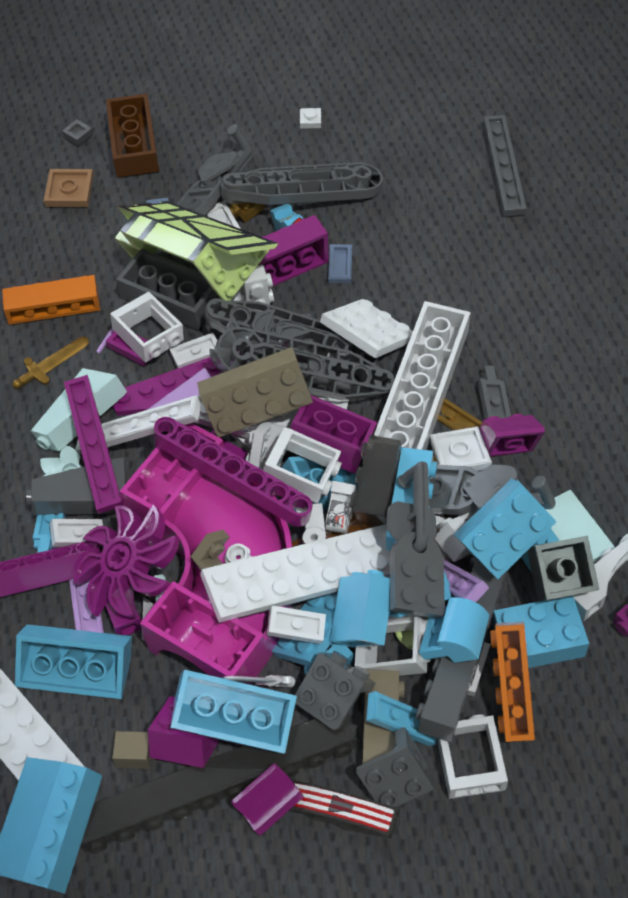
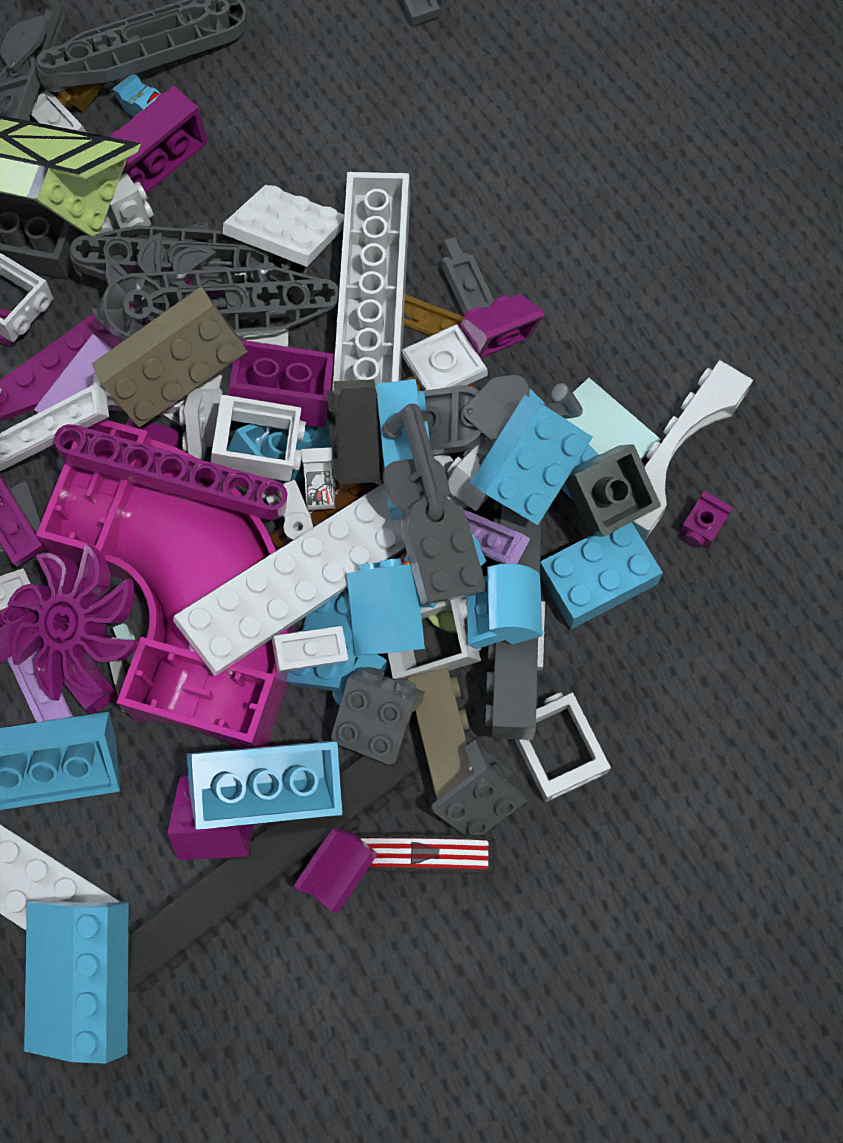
camera: 15 degrees left, 15 degrees up
(131, 750) = (152, 854): dark tan brick -> none
(193, 350) = (71, 309): white plate -> none
(209, 549) = (173, 589): dark tan bracket -> none
(237, 550) = (211, 572): white plate -> none
(271, 680) = (298, 722): white sword -> none
(340, 263) = (223, 141): sand blue tile -> none
(394, 716) = (458, 728): medium azure tile -> none
(514, 681) = (589, 645): orange brick -> none

